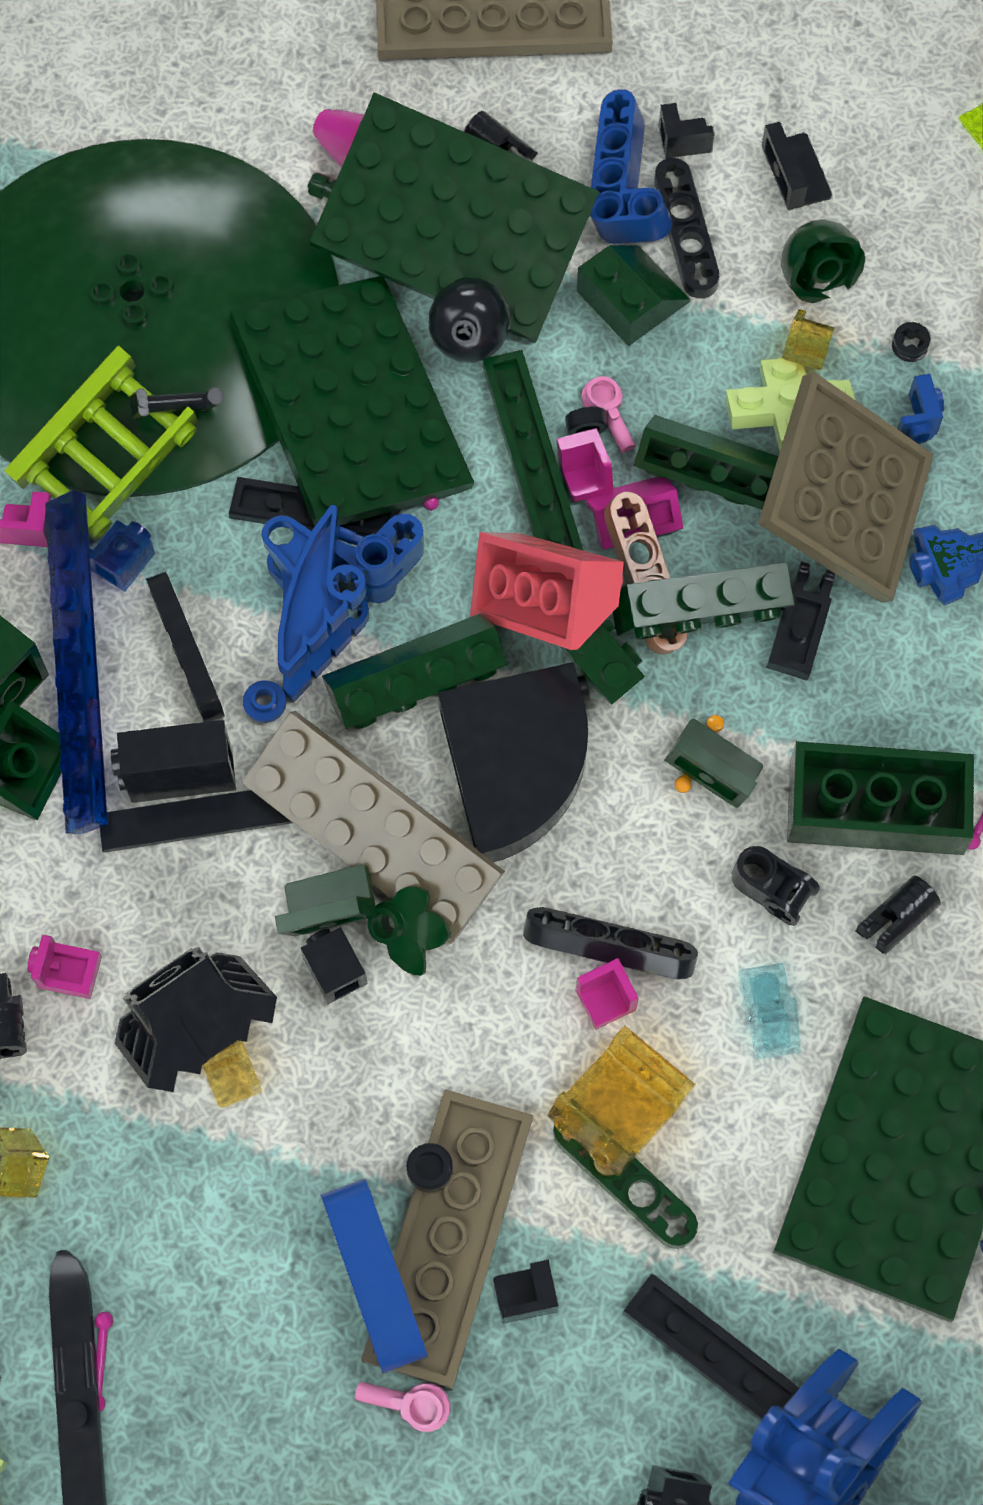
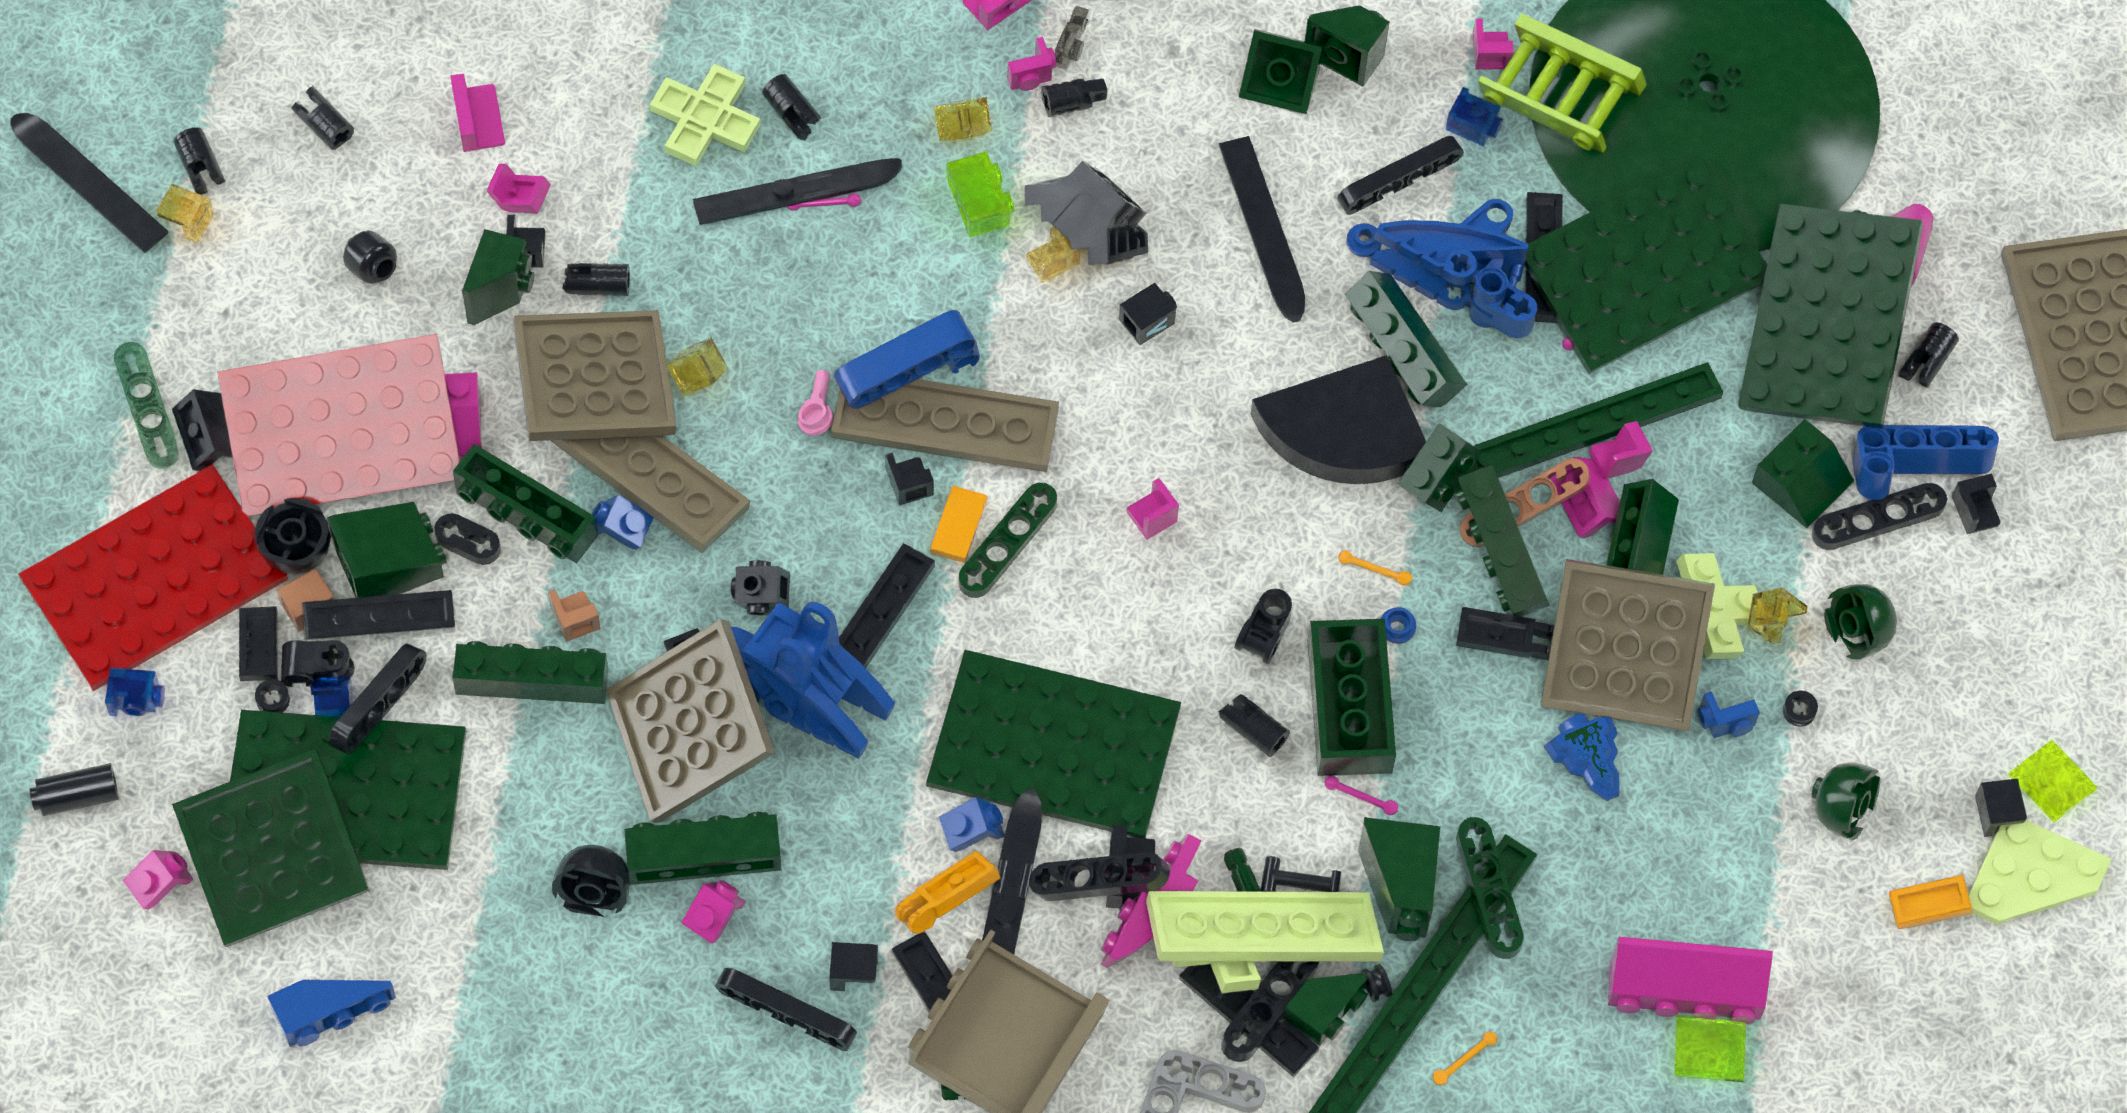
camera: 80 degrees right, 5 degrees down
(63, 968) = (1118, 128): dark pink bracket -> none
(76, 664) = (1358, 97): clear blue plate -> none
(129, 1153) = (979, 194): none -> clear neon green brick
(143, 404) = (1605, 122): black piece -> none
(174, 761) = (1294, 175): black brick -> none
(327, 901) = (1197, 300): dark green panel -> none
(370, 821) = (1263, 322): plate -> none
(413, 929) = (1185, 363): dark green plate -> none
(429, 1167) = (994, 395): black tile -> none
(476, 306) = (1736, 342): black cylinder -> none
(544, 587) = (1489, 413): coral slope -> none
(586, 419) = (1664, 450): black tile -> none
(595, 1237) = (958, 524): none -> light orange tile
(607, 394) = (1691, 463): bright pink plate -> none
(610, 941) = (1191, 549): black beam -> none
(621, 1101) = (1063, 524): clear yellow panel -> none
(714, 763) = (1366, 575): dark green panel -> none
(770, 1011) = (1158, 635): clear light blue slope -> none
(781, 726) = (1403, 616): none -> blue plate
(795, 167) = (1961, 600): black panel -> none

